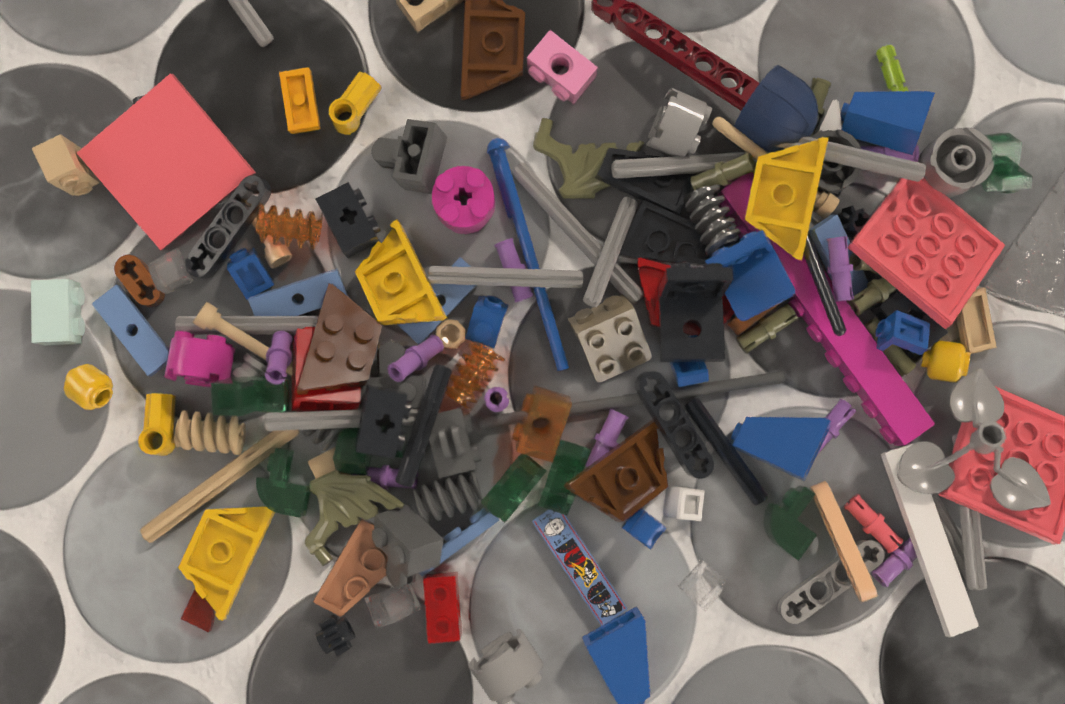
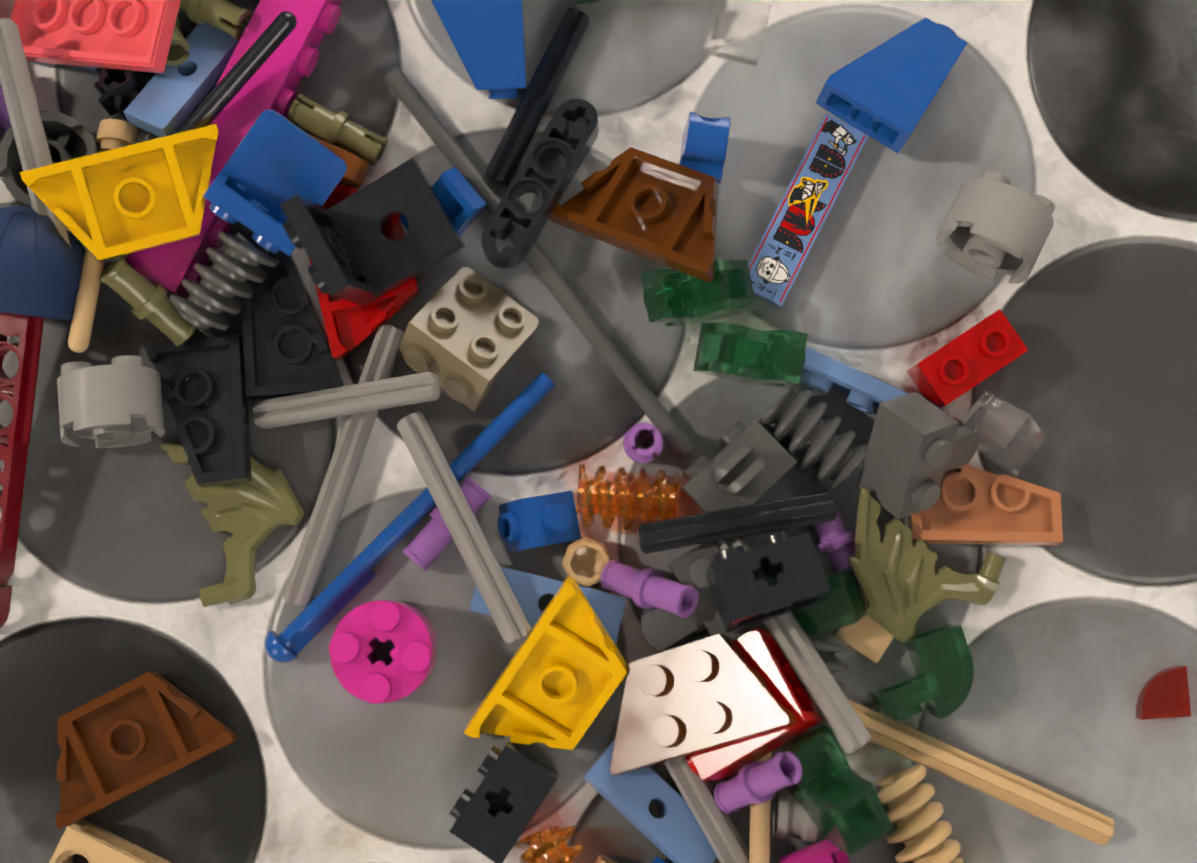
camera: 115 degrees left, 0 degrees up
(224, 552) = (1067, 707): yellow wing -> none
(335, 635) = (1089, 486): black gear -> none
(414, 156) = (359, 759): dark grey brick -> none
(544, 441) = (662, 345): clear orange brick -> none
(553, 52) = (93, 639): bright pink brick -> none
(608, 436) = (606, 265): medium lavender pin -> none
(669, 165) = (173, 379): light grey axle -> none
(683, 503) = (641, 115): white slope -> none
(840, 268) = (198, 67): medium lavender pin -> none

